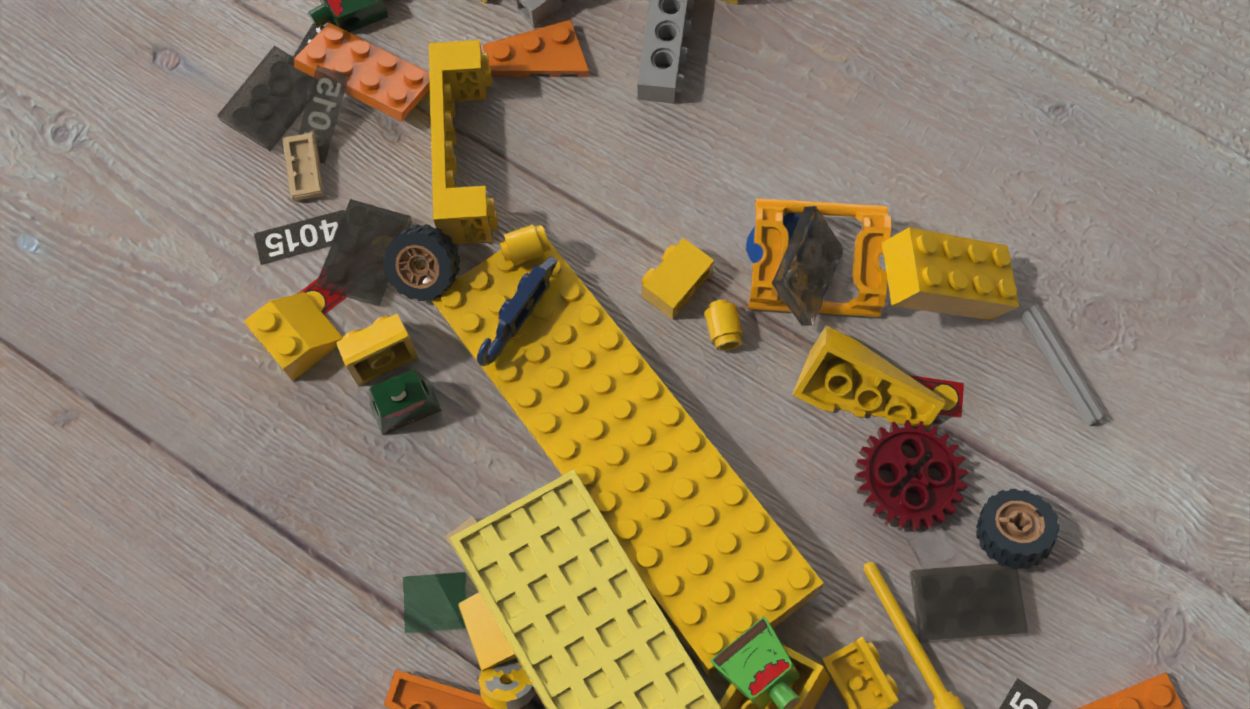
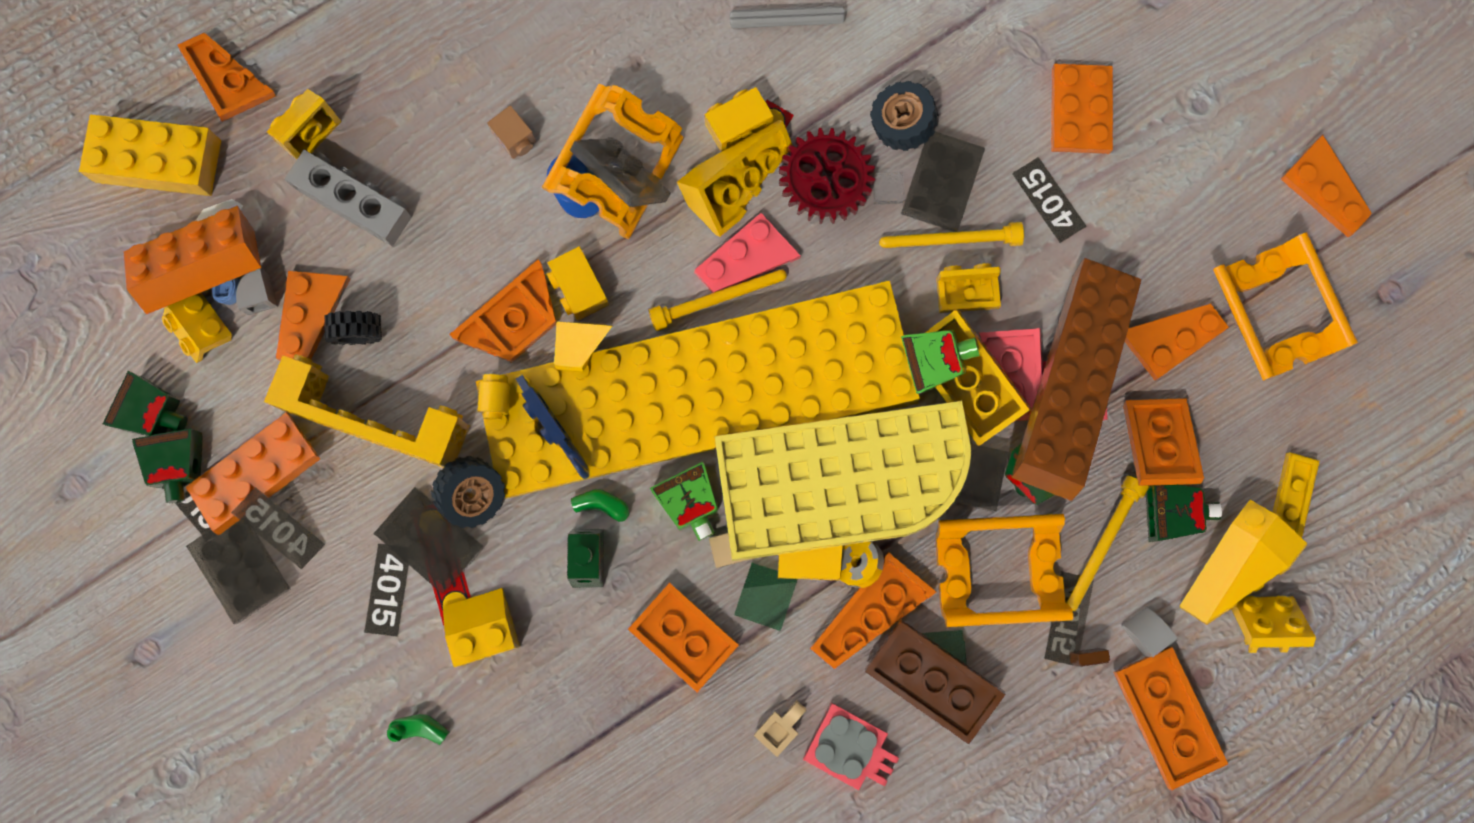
camera: 70 degrees left, 10 degrees up
(179, 319) = (417, 725): none -> green arm
(298, 672) = (778, 730): none -> tan plate
(303, 166) = (321, 563): tan plate -> none
(359, 534) = (683, 637): none -> orange plate
(376, 349) = (526, 561): yellow slope -> none
(467, 396) = (602, 501): none -> green arm
(502, 477) = (688, 500): none -> torso
(538, 94) = (353, 328): none -> black tyre
(613, 299) = (576, 344): none -> yellow slope
(616, 233) = (511, 318): none -> orange wing
(681, 373) = (662, 316): none -> yellow piece
(724, 325) = (636, 264): yellow brick -> none
(788, 431) = (747, 254): none -> coral wing
(800, 153) = (512, 132): none -> medium nougat brick
(925, 358) = (737, 118): none -> yellow brick
(949, 274) = (682, 63): yellow brick -> none

